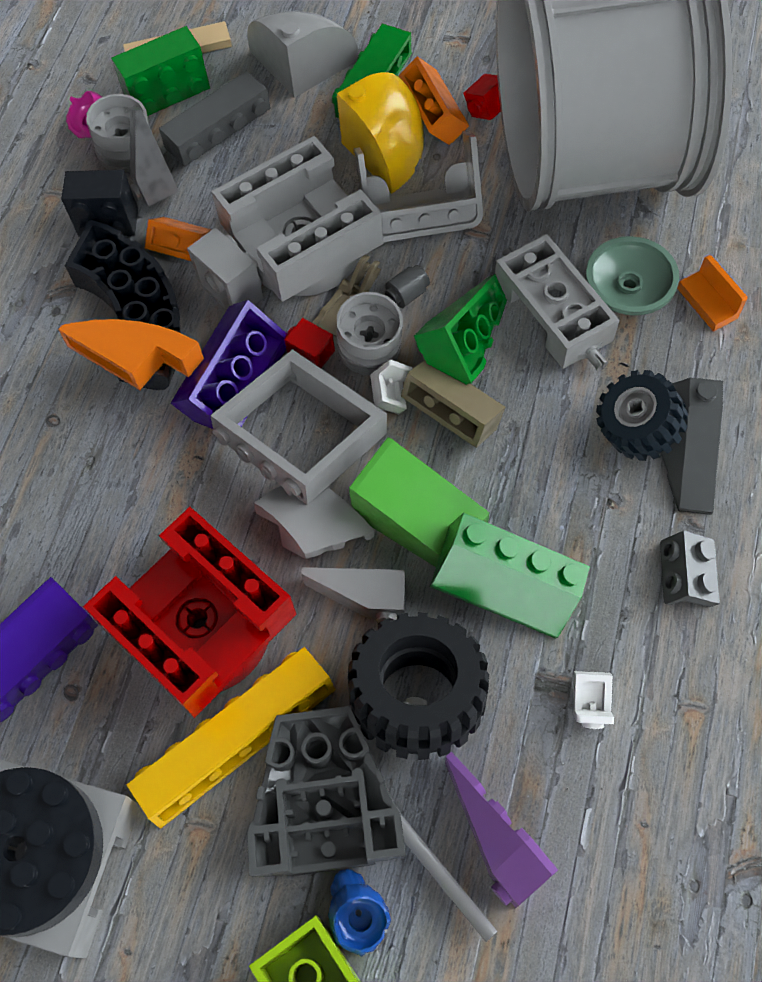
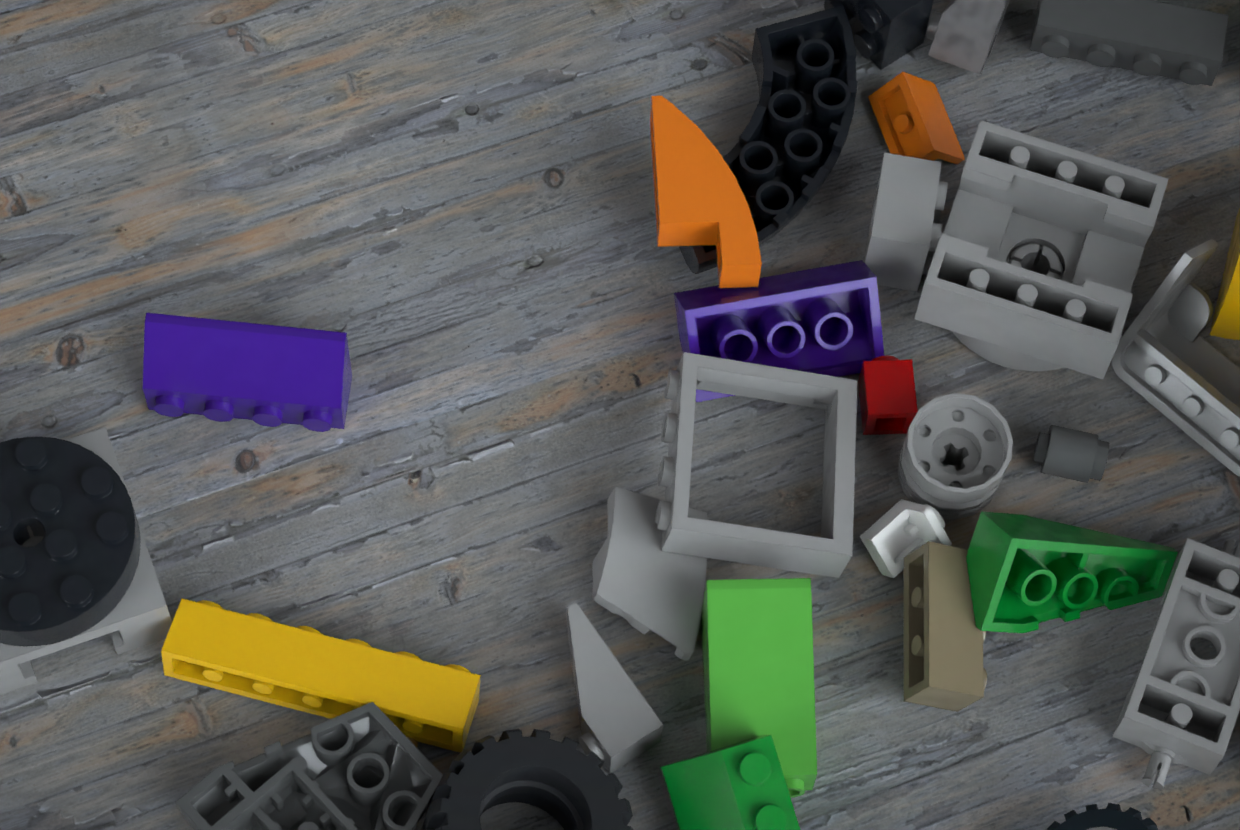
camera: 45 degrees right, 0 degrees up
(193, 581) = (398, 482): red piece -> none
(328, 314) = (1009, 389): dark tan arm -> none

